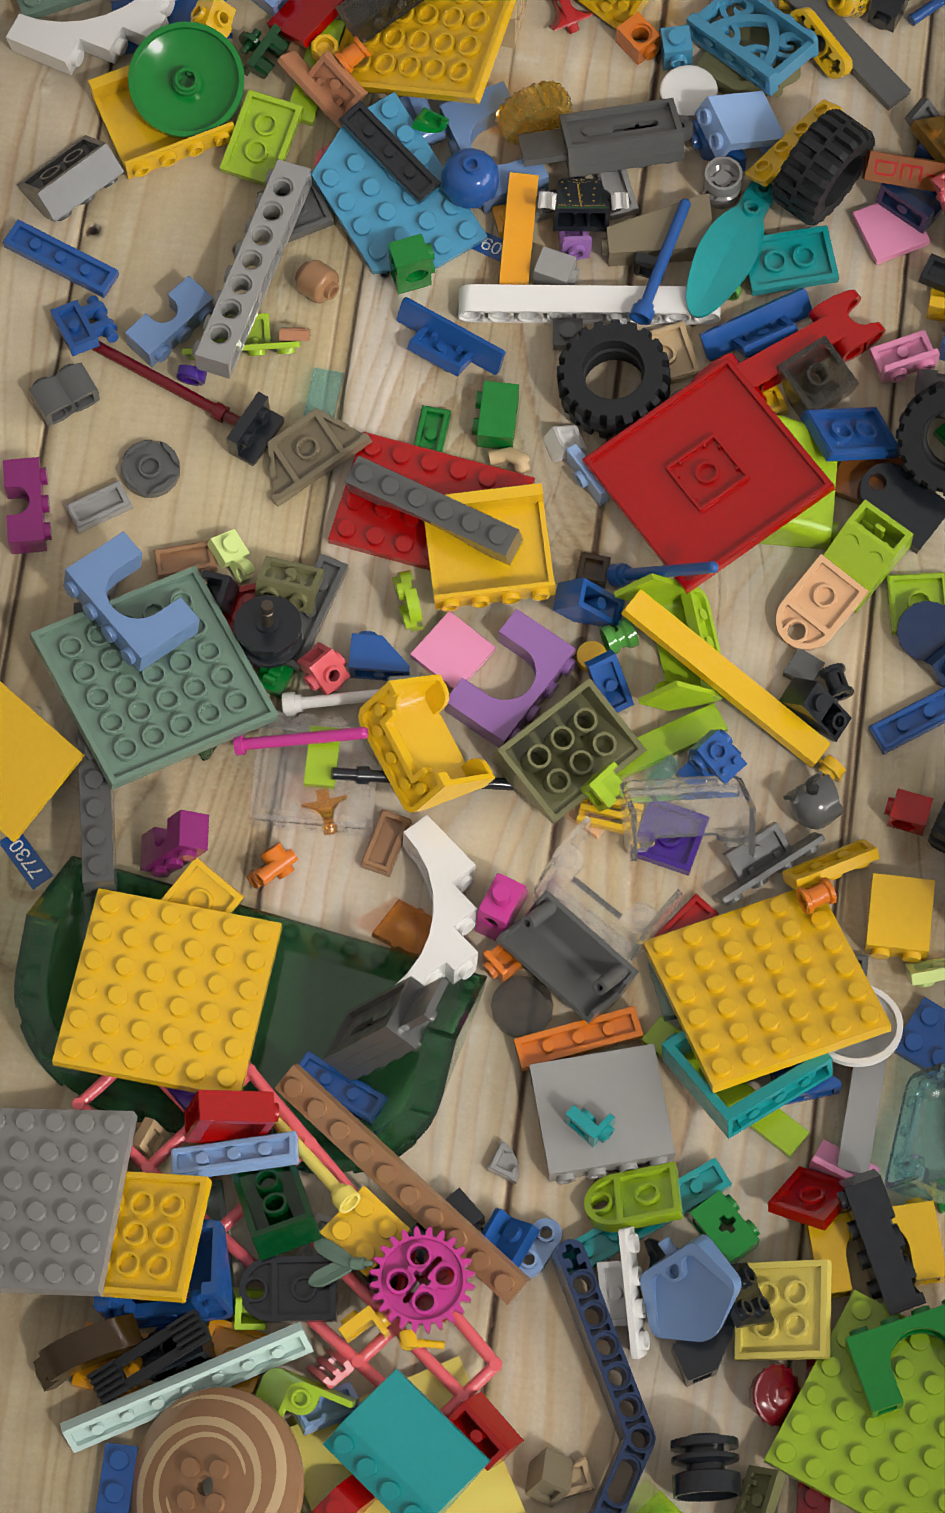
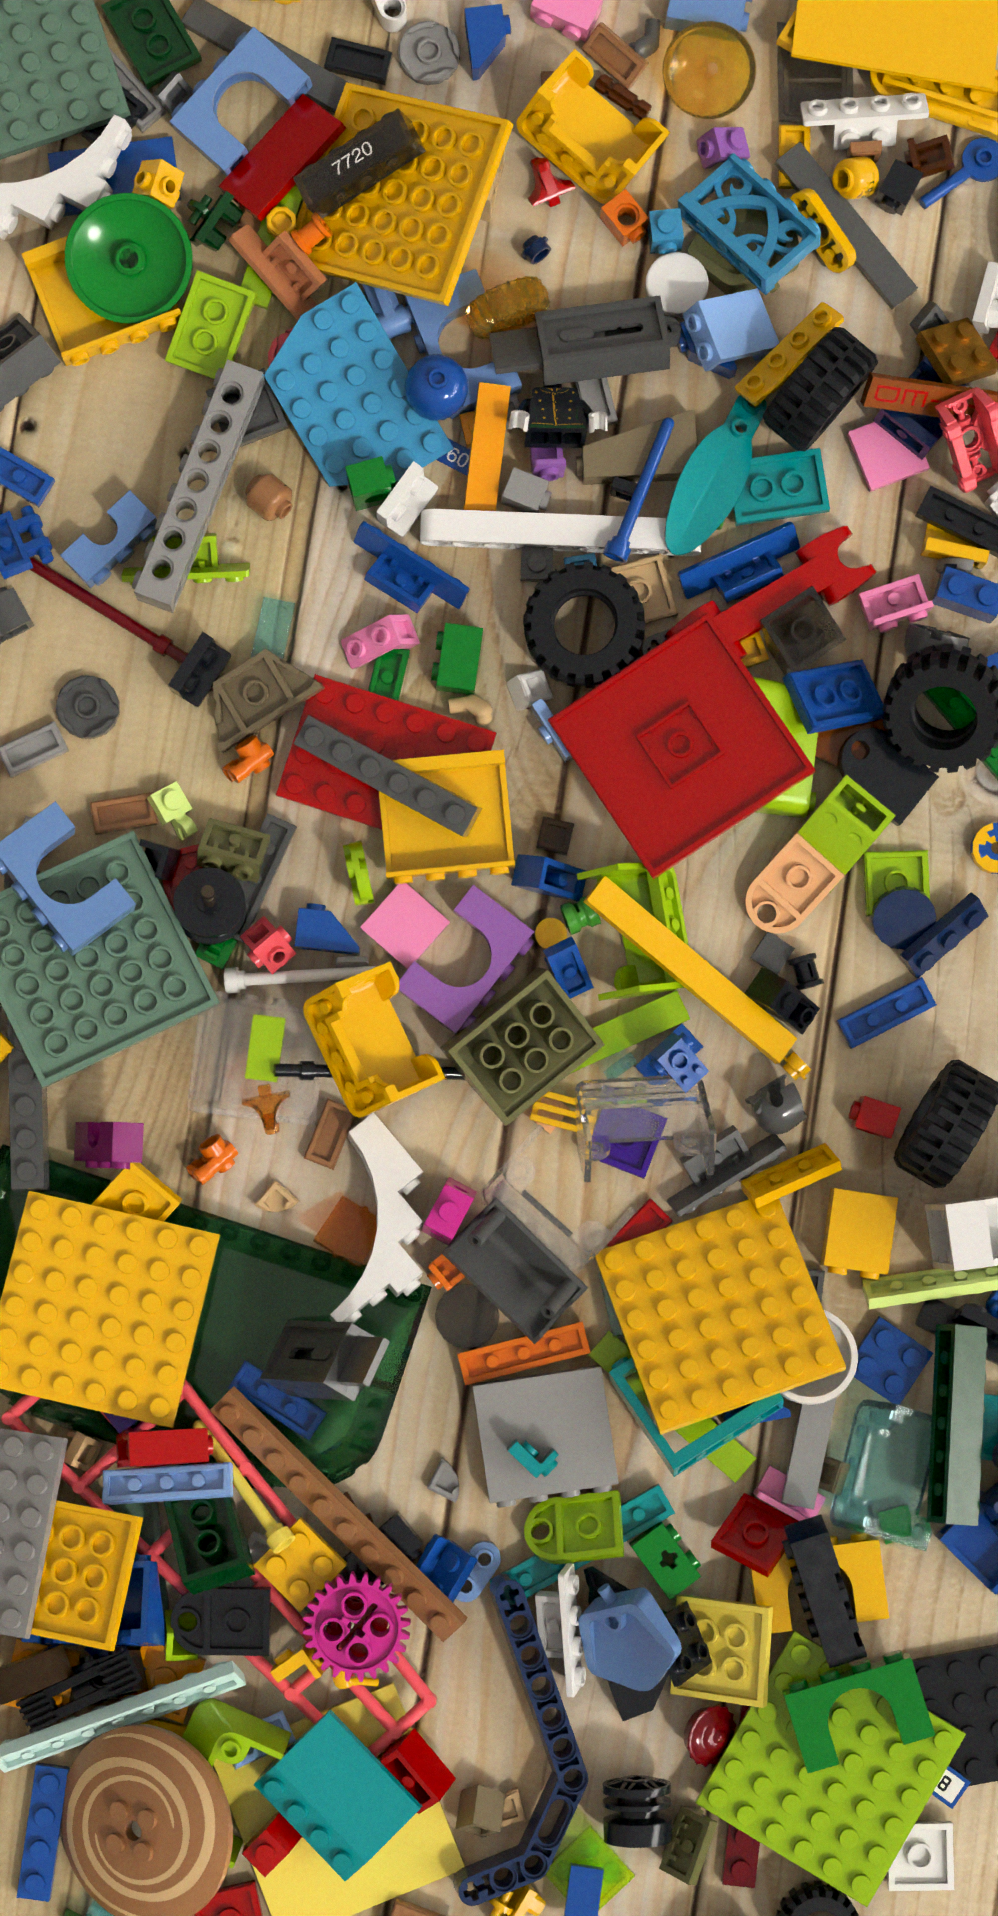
camera: 10 degrees left, 15 degrees up
(191, 375) = (131, 603): dark purple tile -> none
(243, 744) = (184, 1030): dark pink bar -> none
(294, 334) = (243, 558): nougat tile -> none
(305, 505) = (253, 757): none -> orange plate
(327, 1364) = (256, 1689): coral tile -> none
(335, 904) = (276, 1199): none -> tan tile
(342, 1263) = (275, 1601): sand green piece -> none
(389, 152) = (349, 354): black tile -> none
(421, 398) = (379, 638): none -> bright pink bracket
(430, 121) = (394, 317): green tile -> none
(444, 279) = (406, 500): none -> white bracket
(558, 67) = (535, 249): none -> dark blue plate
(603, 787) = (558, 1089): lime panel -> none
(622, 574) = (586, 845): blue piece -> none
(723, 182) = (709, 394): light grey wheel -> none
(816, 895) = (775, 1214): orange bush -> none
(885, 1144) = (833, 1475): none -> dark tan tile

